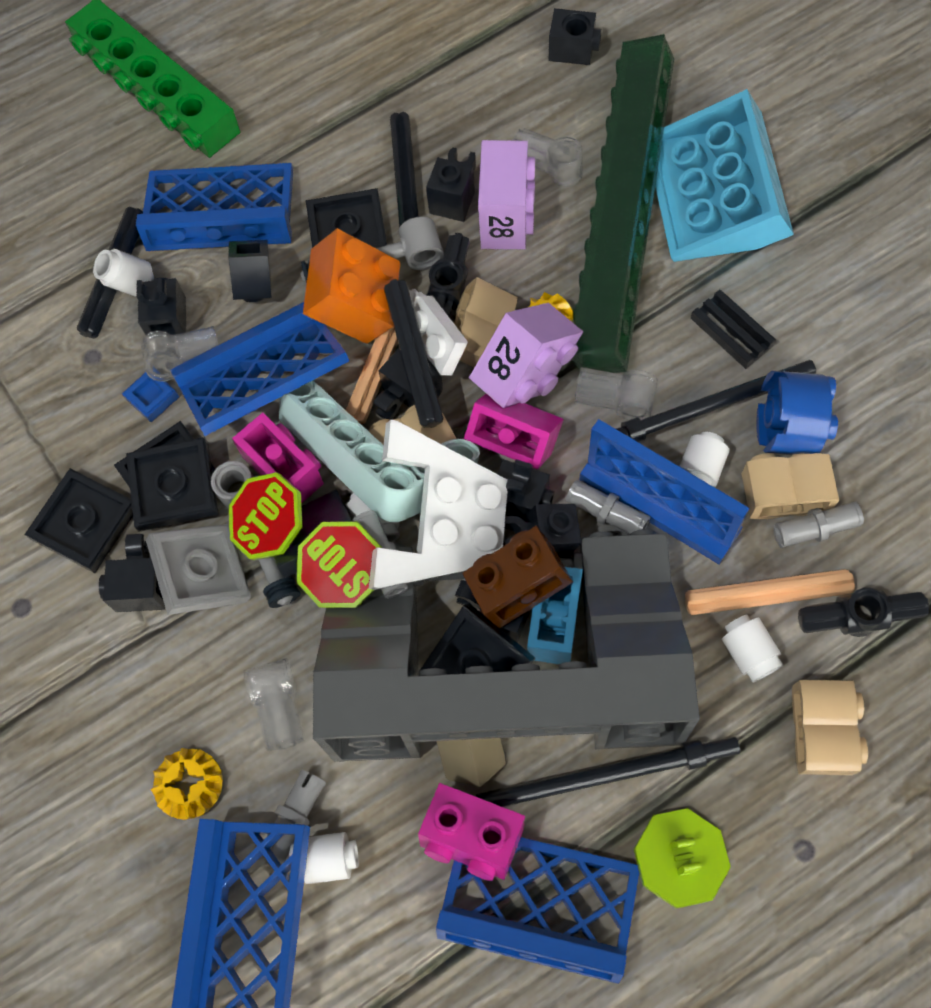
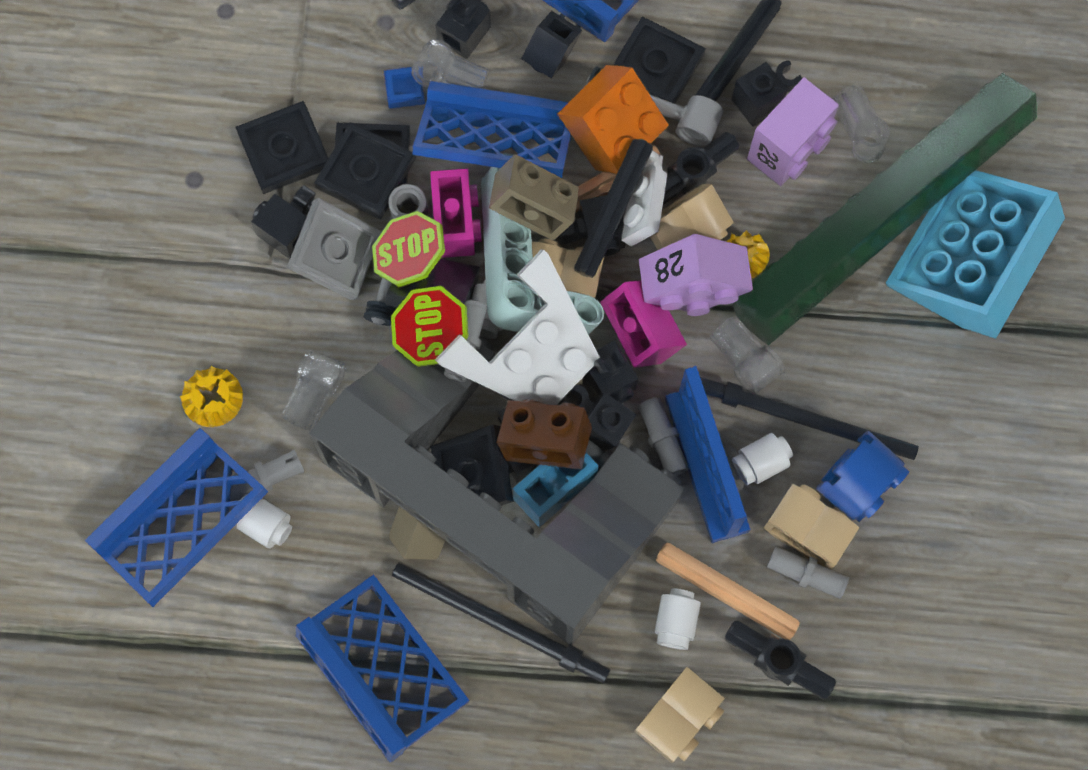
camera: 30 degrees right, 5 degrees up
(340, 391) = (534, 197): none -> dark tan brick
(471, 832) = (371, 583): dark pink brick -> none
(573, 36) = (974, 22): black brick -> none
(682, 858) = (502, 718): lime piece -> none
(737, 324) = (880, 345): black tile -> none

